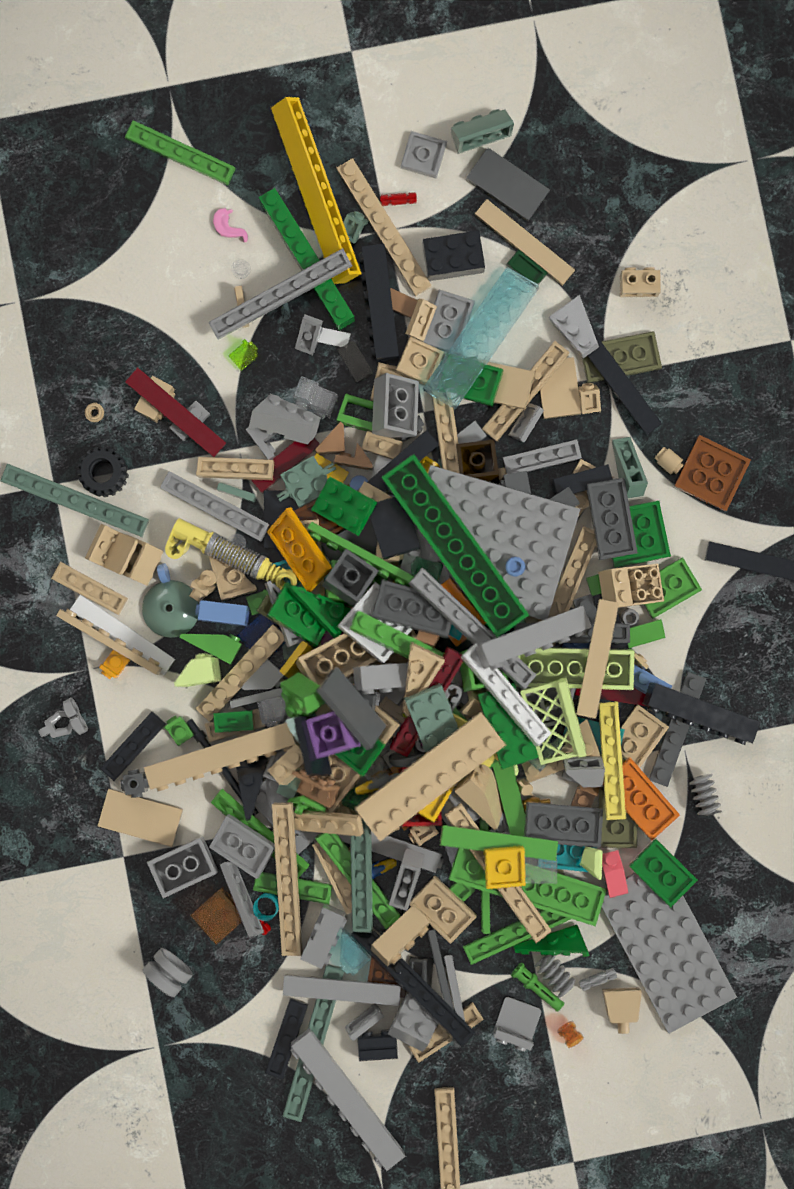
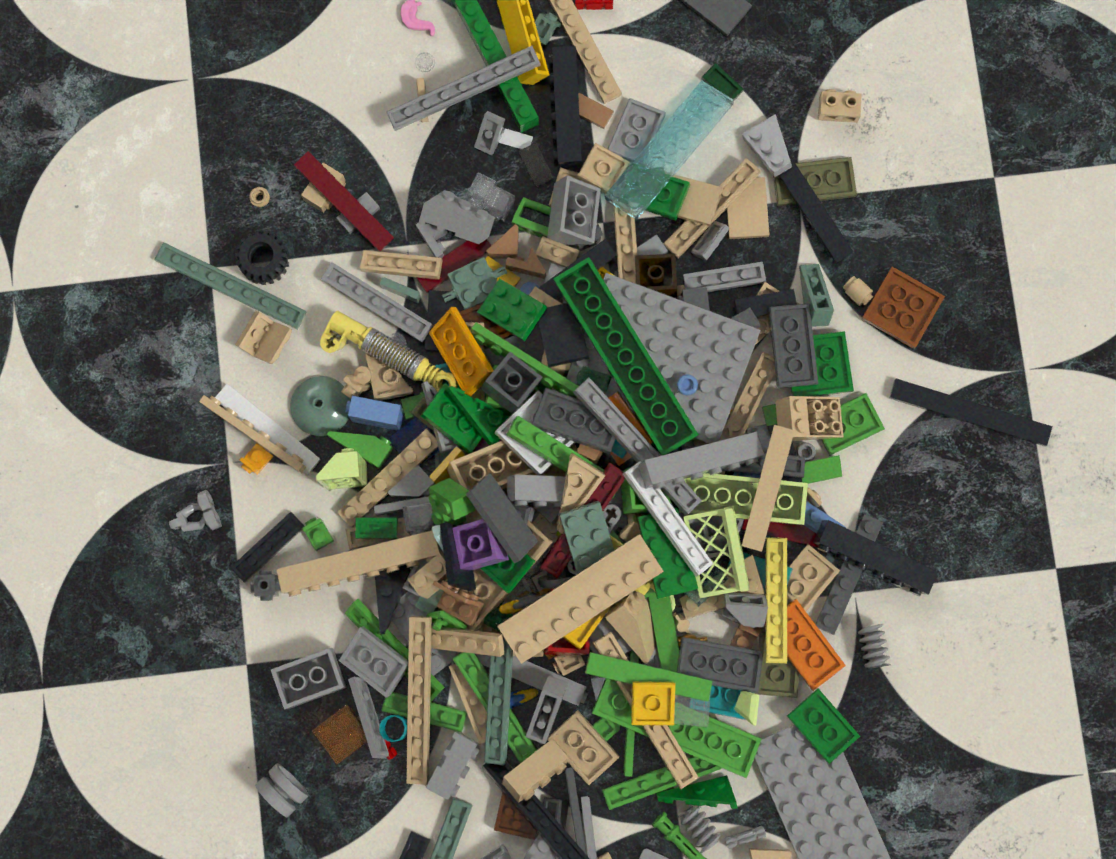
camera: 10 degrees right, 5 degrees down
(89, 588) = (237, 378): tan tile -> none
(140, 817) = (268, 623): tan tile -> none
(143, 562) = (295, 354): tan slope -> none
(163, 573) = (316, 367): medium blue tile -> none
(200, 736) = (340, 543): black bar -> none
(244, 354) = (420, 149): clear neon green bracket -> none
(341, 990) = (467, 825): light grey tile -> none
(352, 954) = (481, 788): clear light blue slope -> none
(421, 319) = (608, 126): tan plate -> none
(453, 255) = (647, 64): black brick -> none
(524, 242) = (722, 56): tan tile -> none
(589, 398) = (779, 220): tan bracket -> none
(614, 874) = (770, 723): coral slope -> none

